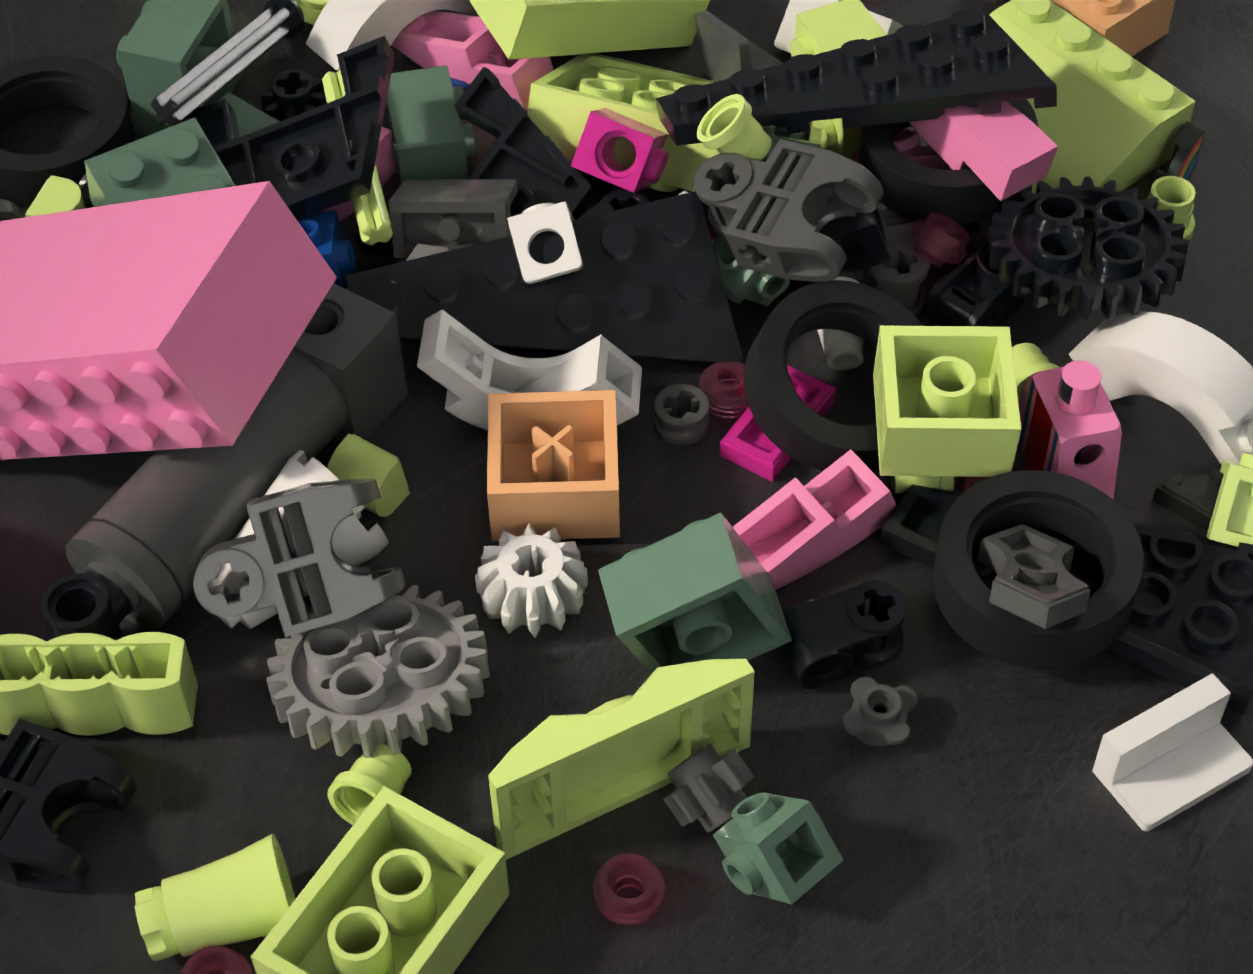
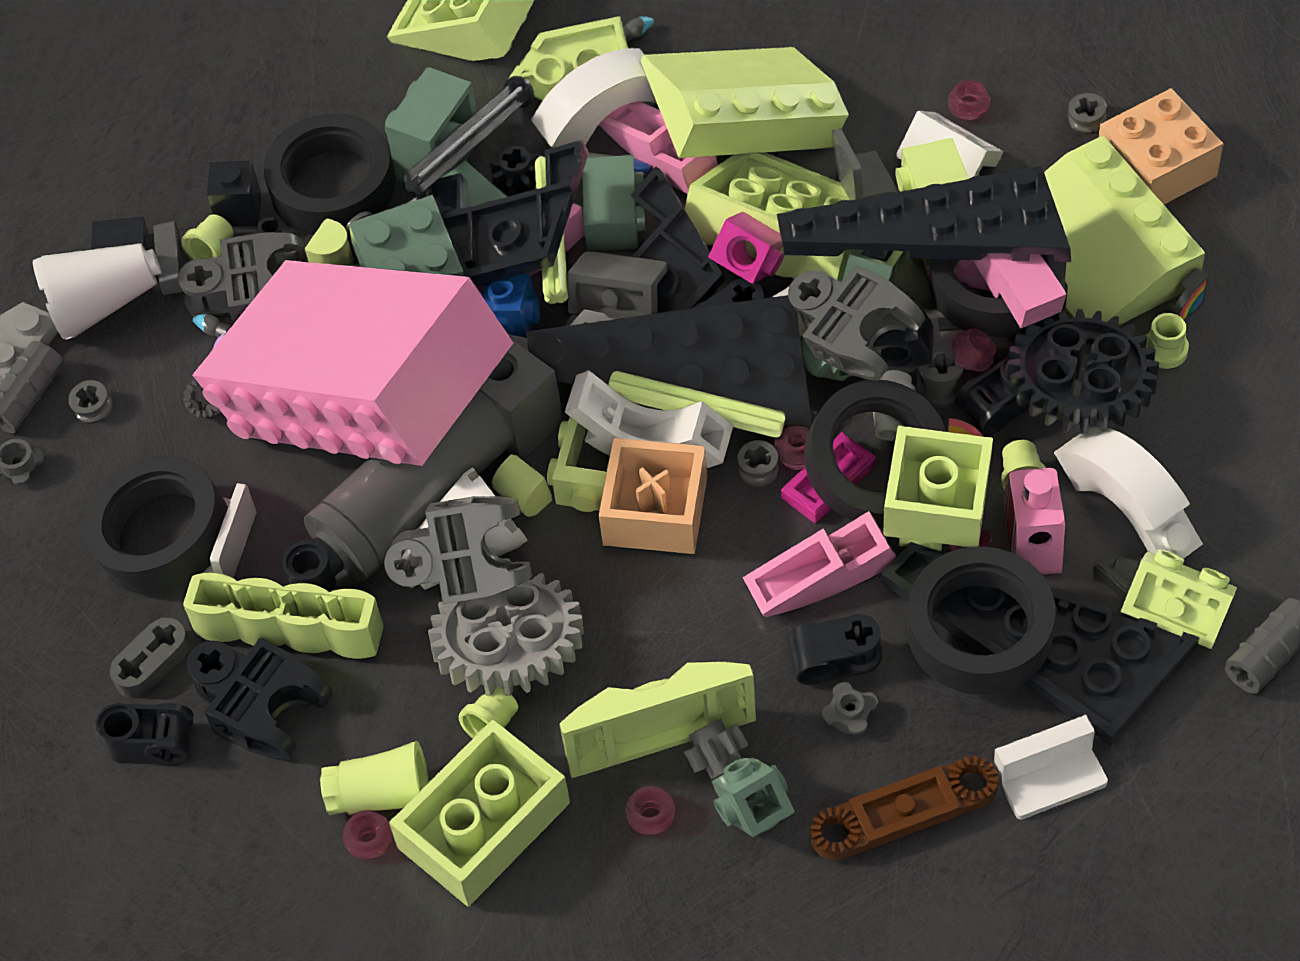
camera: 15 degrees right, 5 degrees up
(440, 467) = (574, 485): none -> yellowish green bracket
(531, 580) = (624, 580): white gear -> none
(540, 219) = (679, 304): white bracket -> none
(554, 339) = (673, 397): none -> yellowish green axle
(694, 598) = (728, 615): sand green brick -> none
(733, 129) = (825, 253): yellowish green piece -> none
(988, 836) = (904, 807): none -> reddish brown plate
(1033, 576) = (969, 633): dark grey tile -> none

